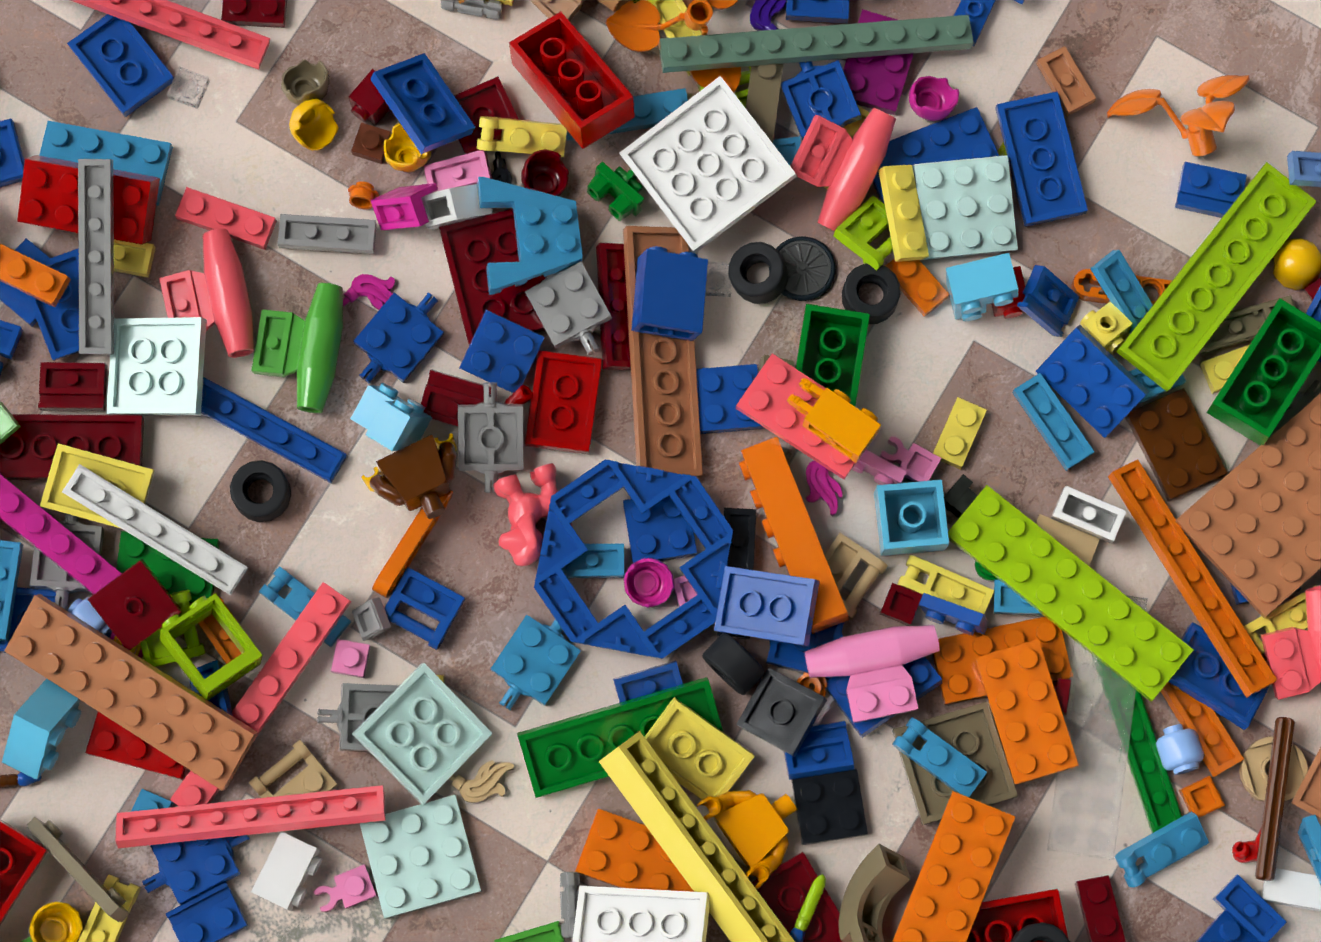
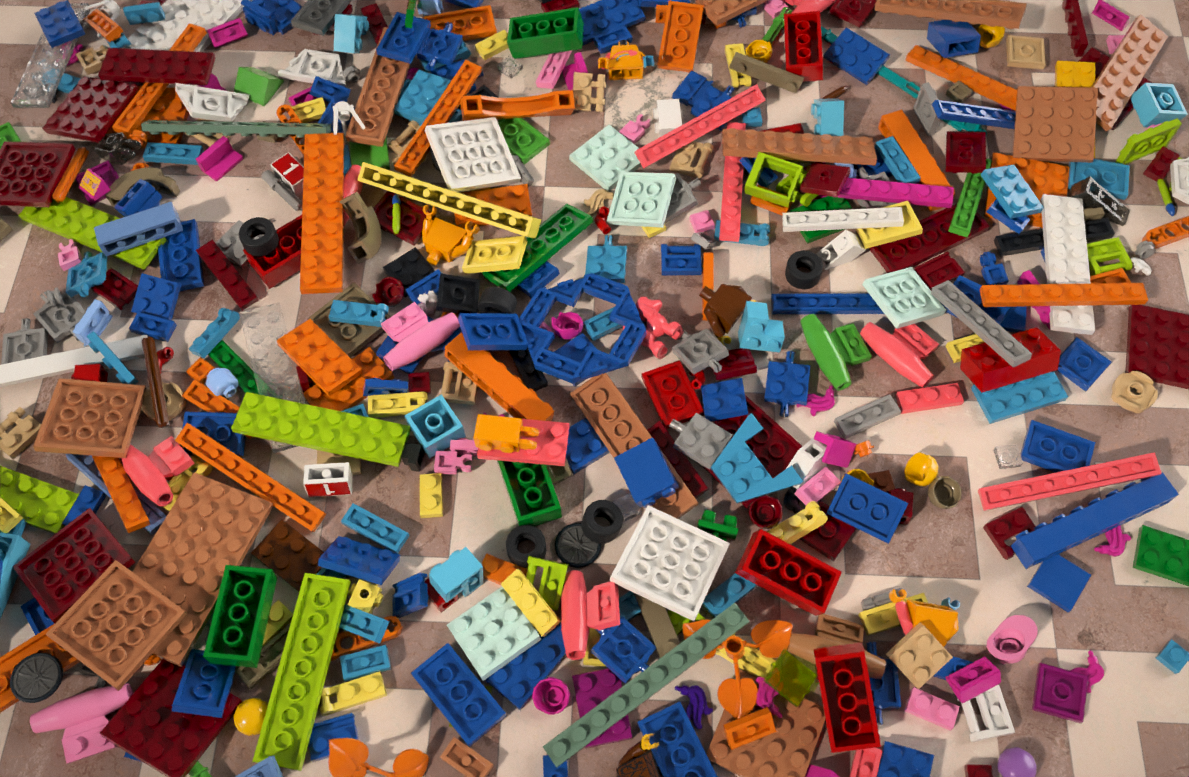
camera: 155 degrees right, 15 degrees down
(187, 492) = (841, 250): none -> white slope
(498, 743) = (601, 220): none -> red arm
(831, 723) = (428, 301): none -> white plant
(880, 775) = (389, 292): none -> dark red hair
(1140, 253) = (365, 662): none -> dark azure plate
(1165, 228) = (353, 693): none -> light yellow plate

